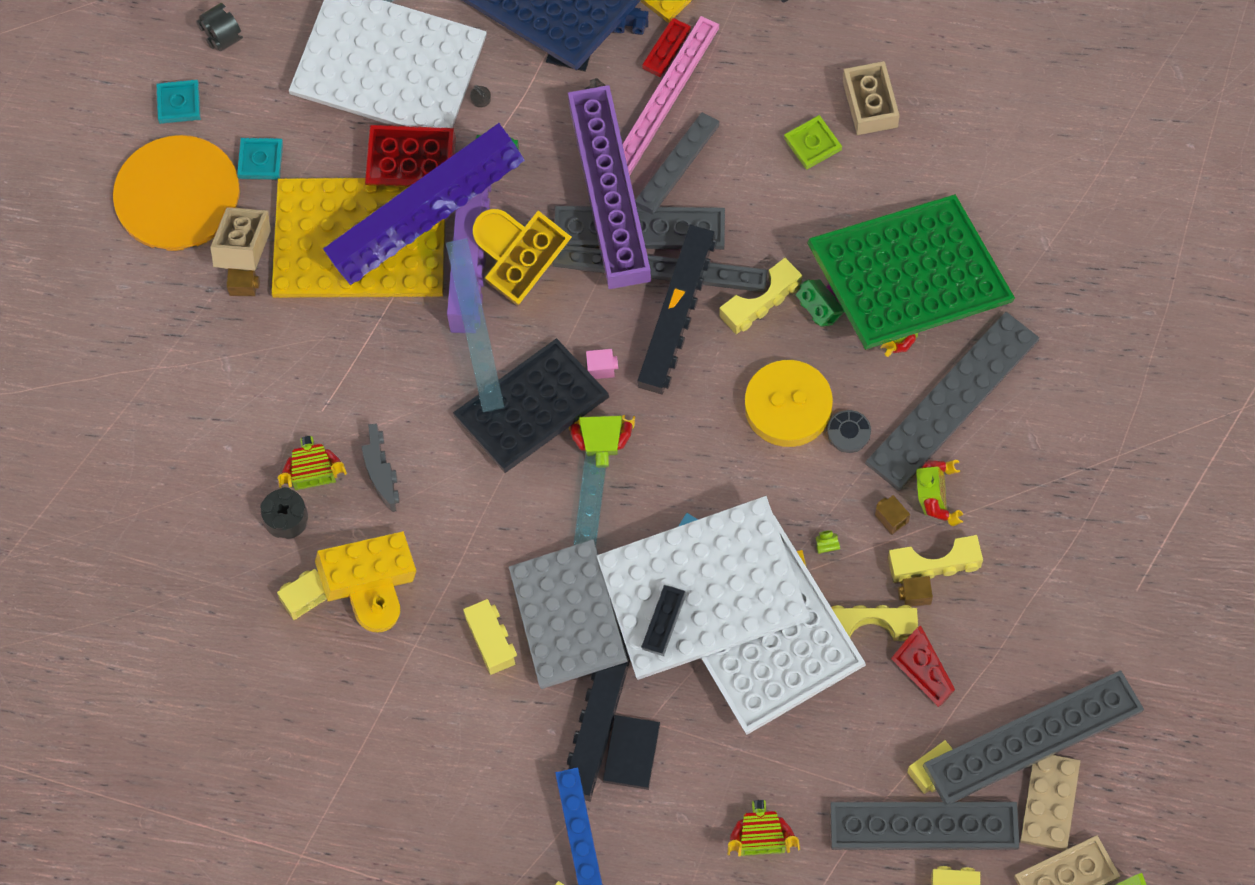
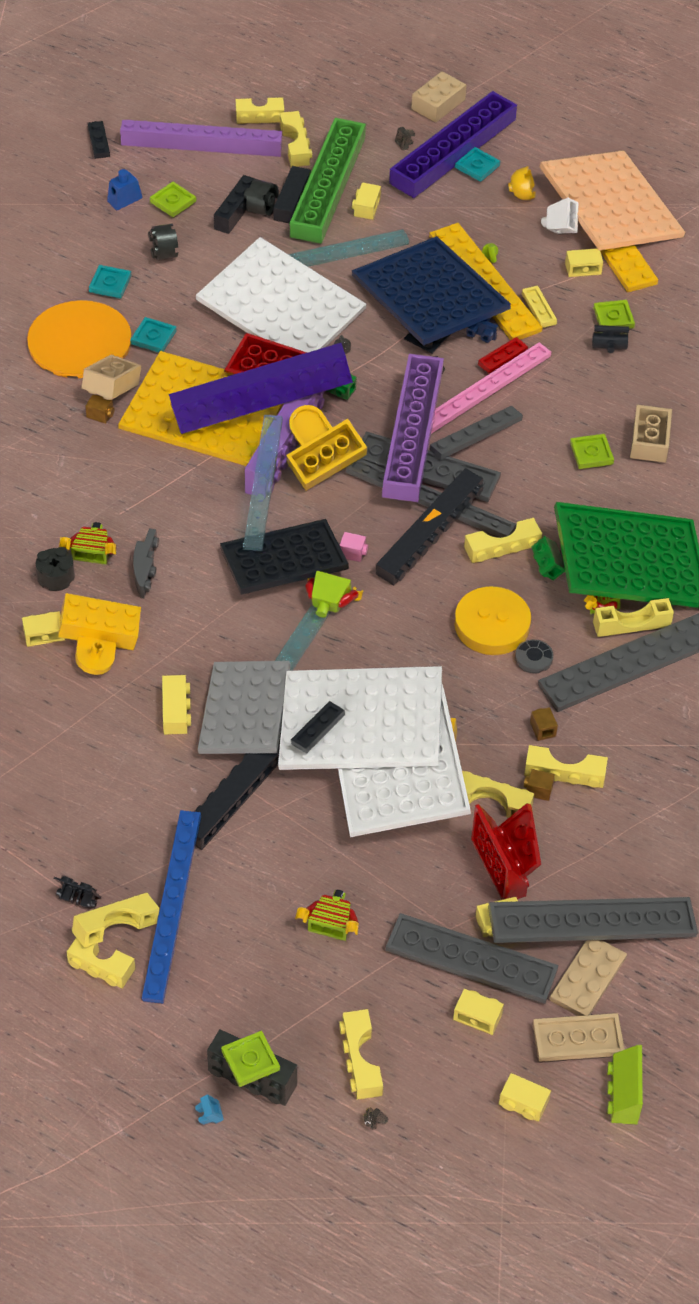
camera: 15 degrees right, 15 degrees down
(631, 752) = (251, 825): black tile -> none
(827, 542) = (481, 727): lime plate -> none
(908, 700) = (497, 856): none -> red slope
(933, 492) = (584, 715): torso -> none
(956, 338) = (653, 616): none -> light yellow arch

